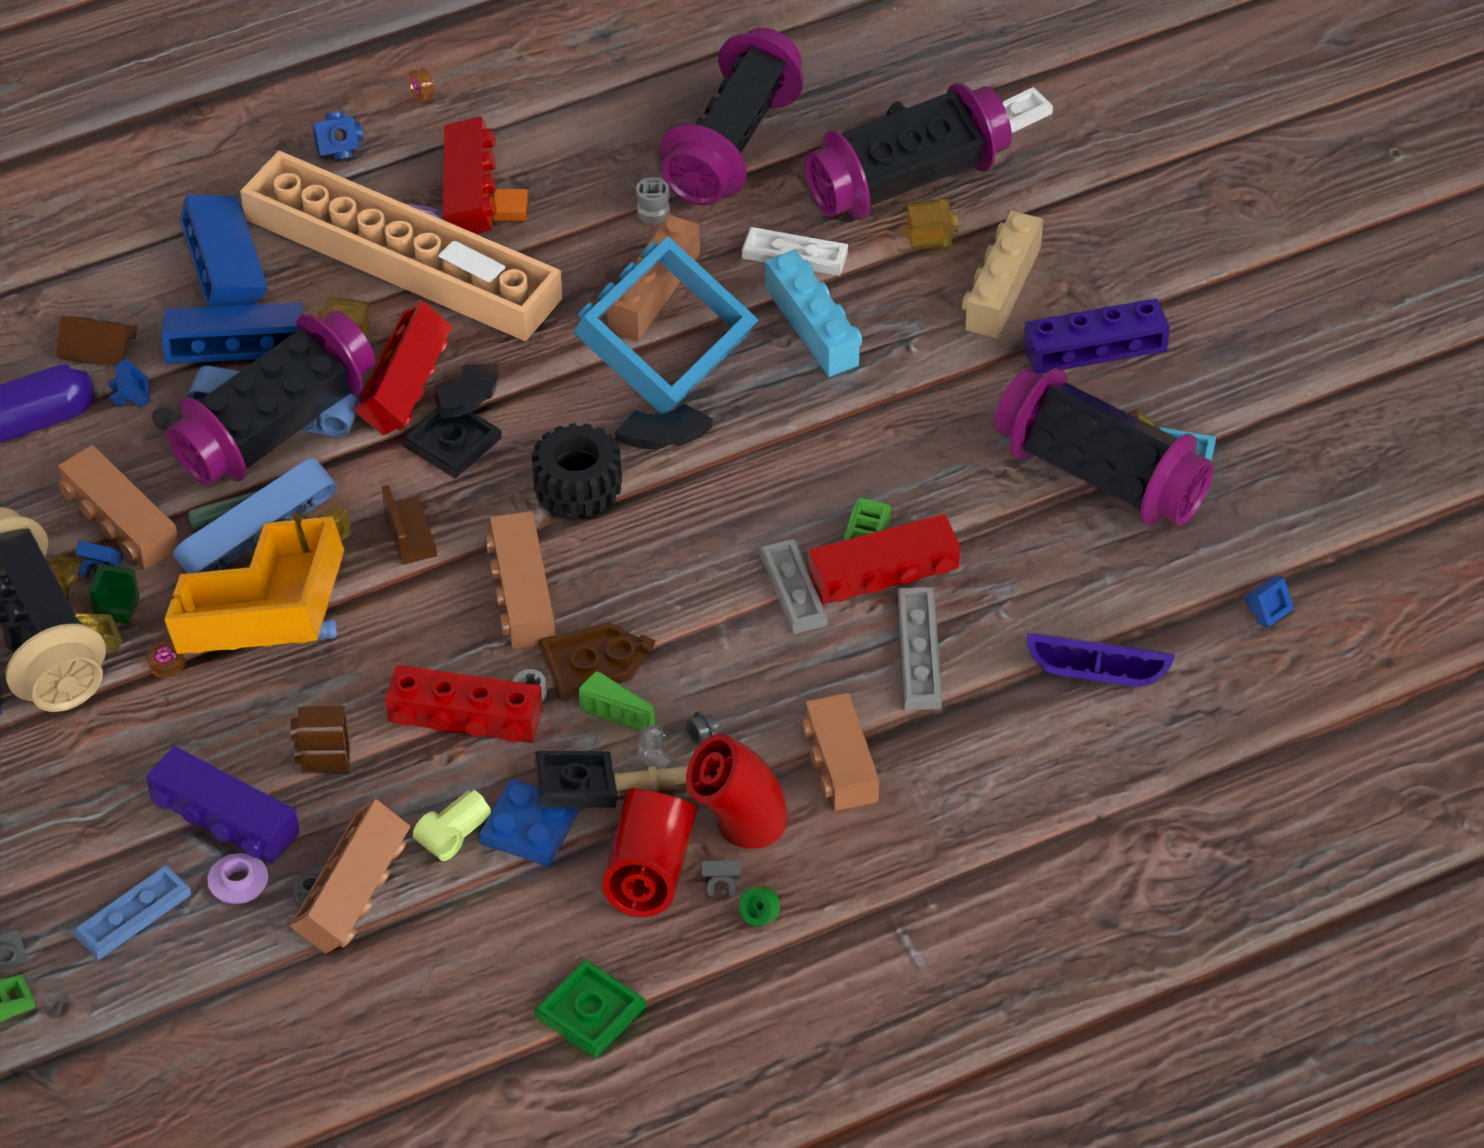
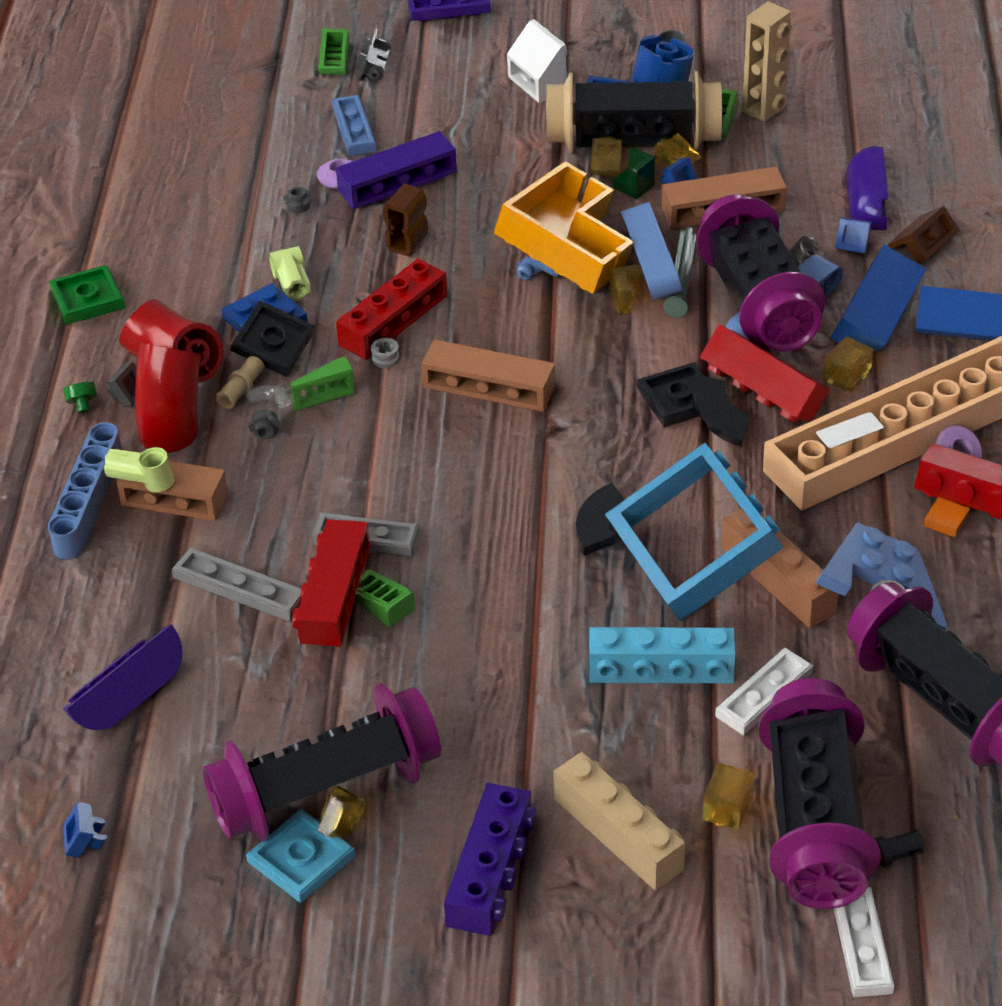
camera: 120 degrees right, 5 degrees down
(350, 877) = (283, 206): nougat brick -> none
(408, 528) = (596, 332): reddish brown panel -> none
(572, 450) = (576, 436): black tyre -> none
(600, 648) = (384, 394): reddish brown tile -> none
(616, 206) = (875, 558): none -> medium blue wing
(862, 748) = (148, 467): none -> yellowish green piece
(869, 826) = (83, 493): none -> medium blue beam

